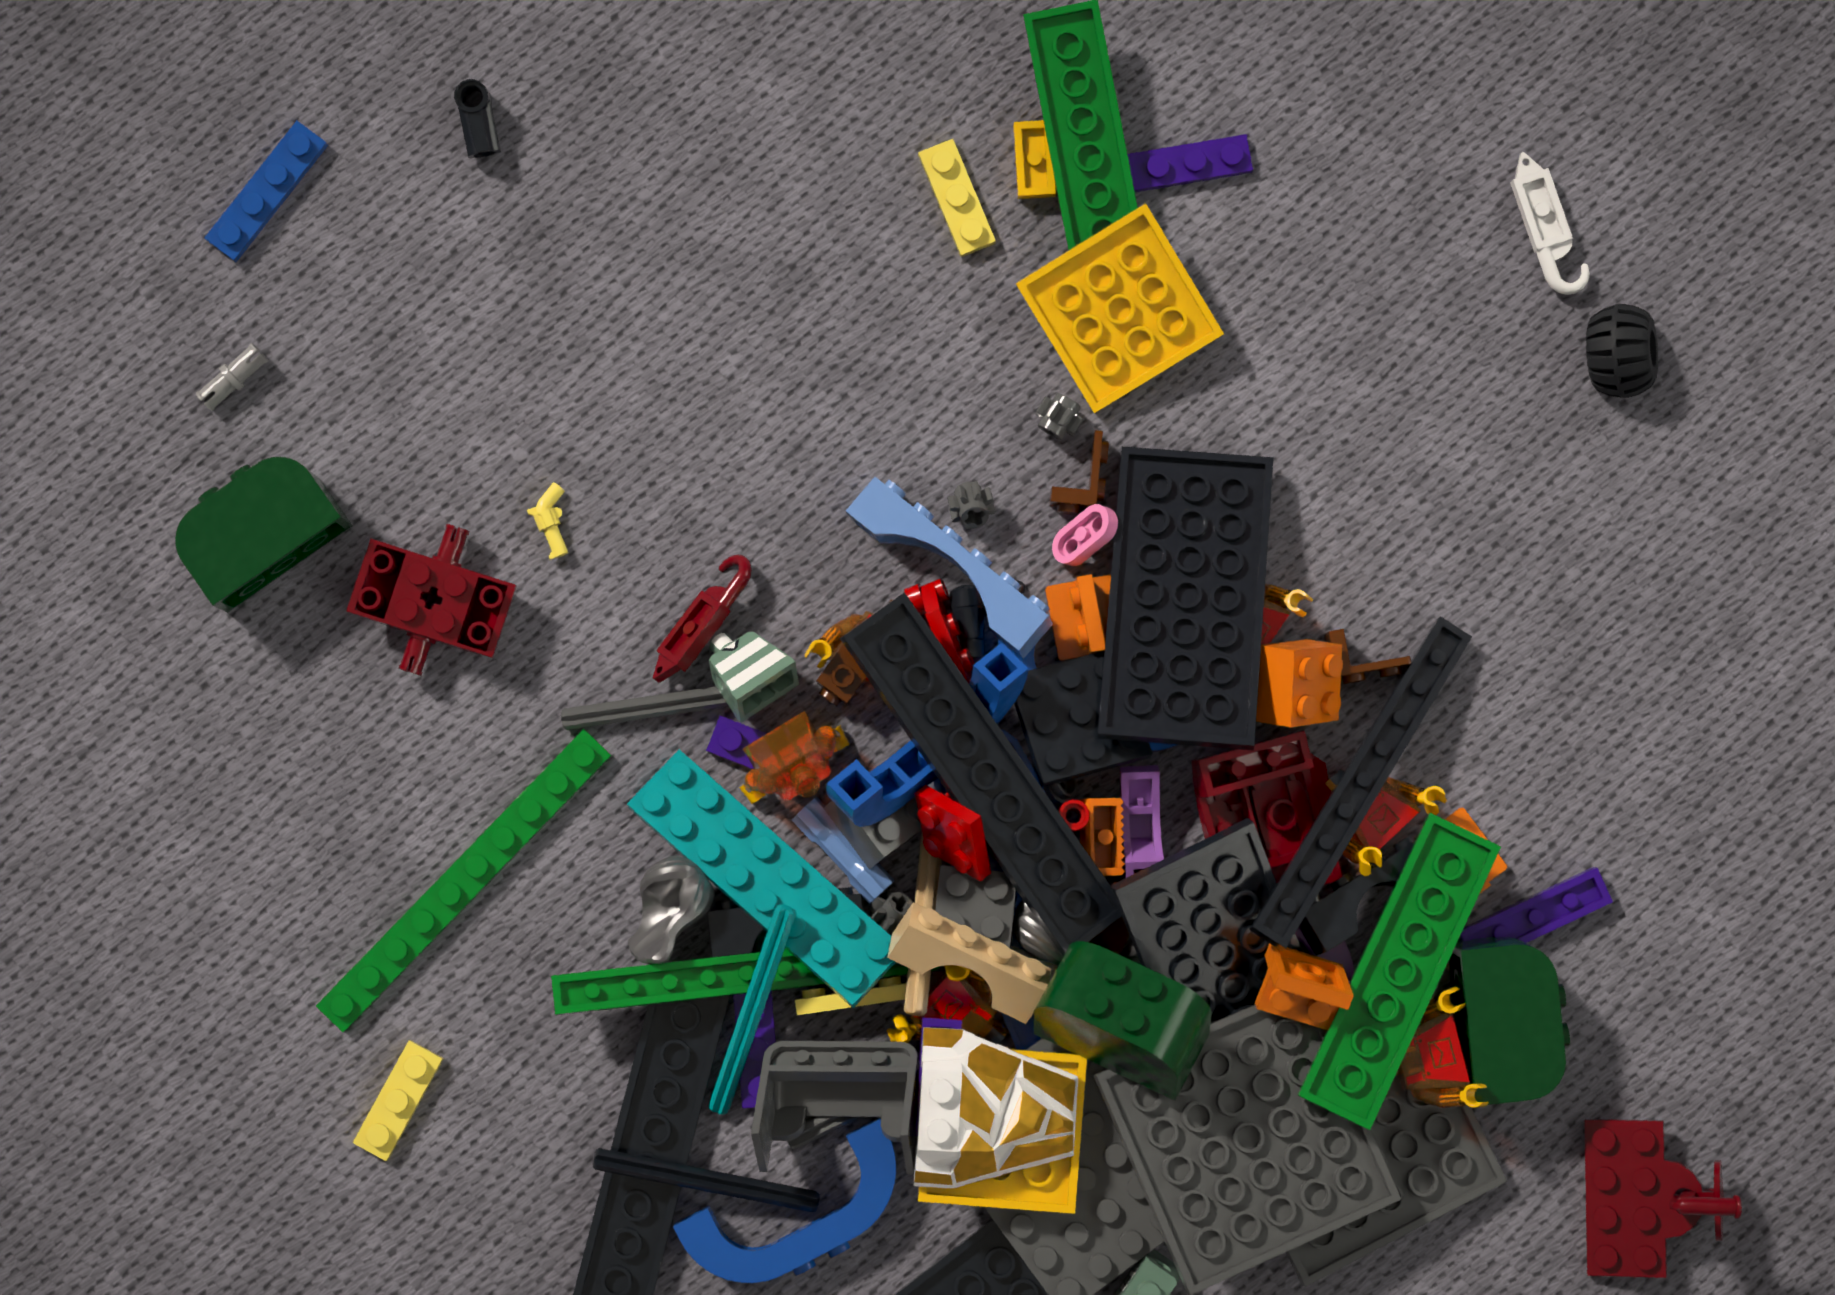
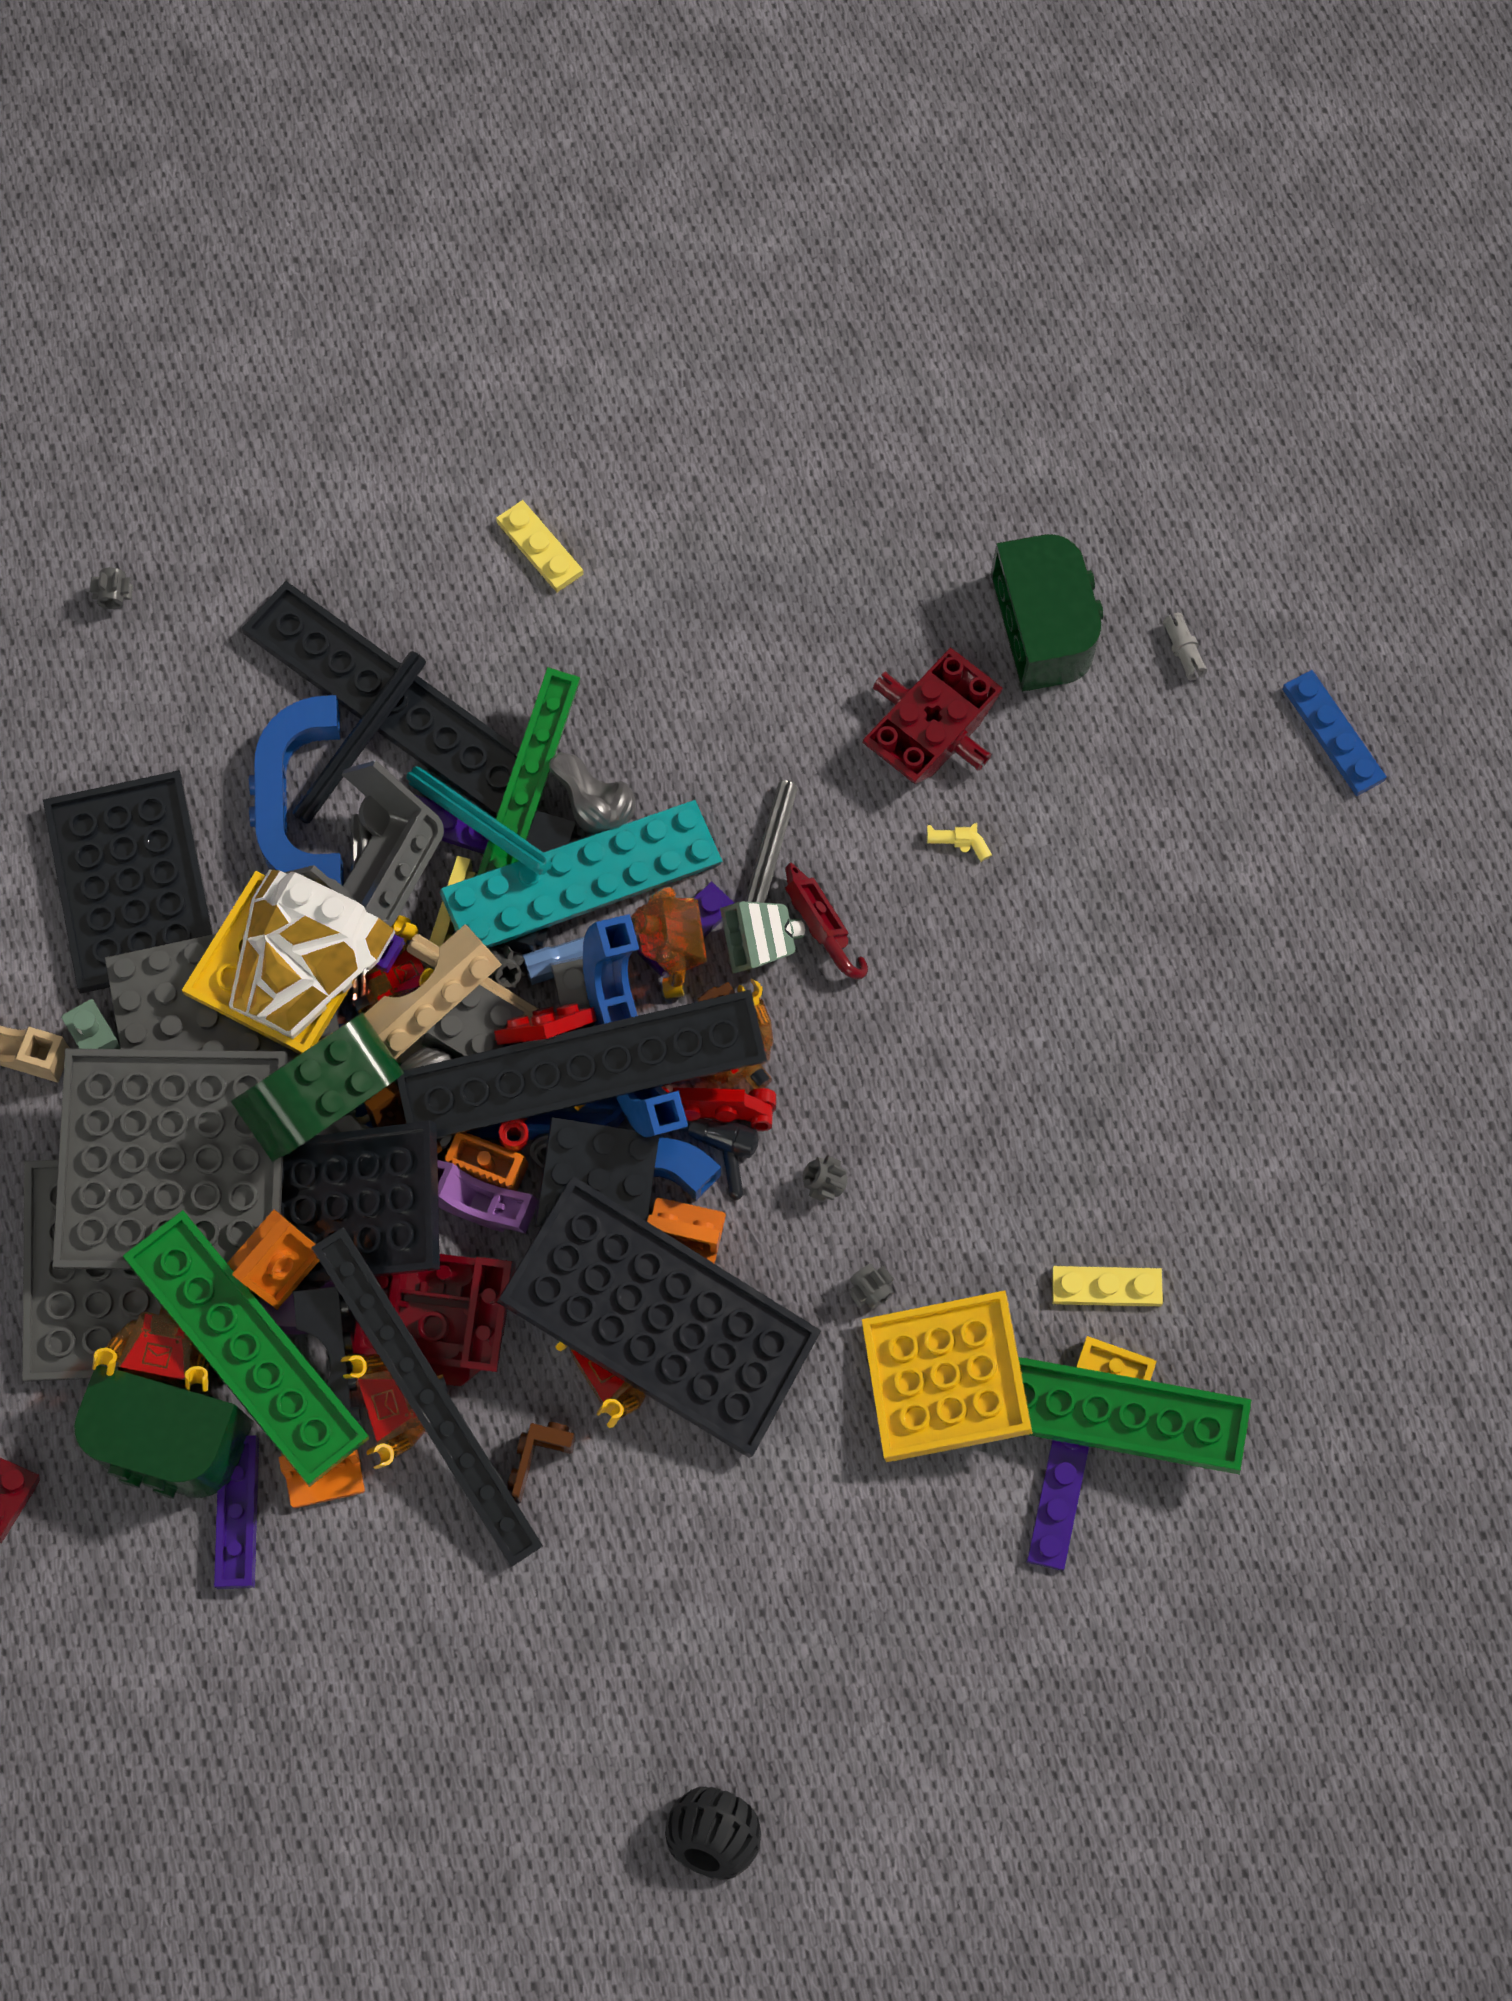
camera: 115 degrees right, 15 degrees down
(463, 881) = (693, 663): green plate -> none
(477, 121) = (1329, 915): black piece -> none
(891, 519) = (714, 1157): medium blue arch -> none
(1071, 500) = (793, 1291): reddish brown bracket -> none
(1088, 532) = (755, 1261): bright pink plate -> none
(1299, 683) = (539, 1381): orange brick -> none
(1545, 222) = (865, 1815): white plate -> none

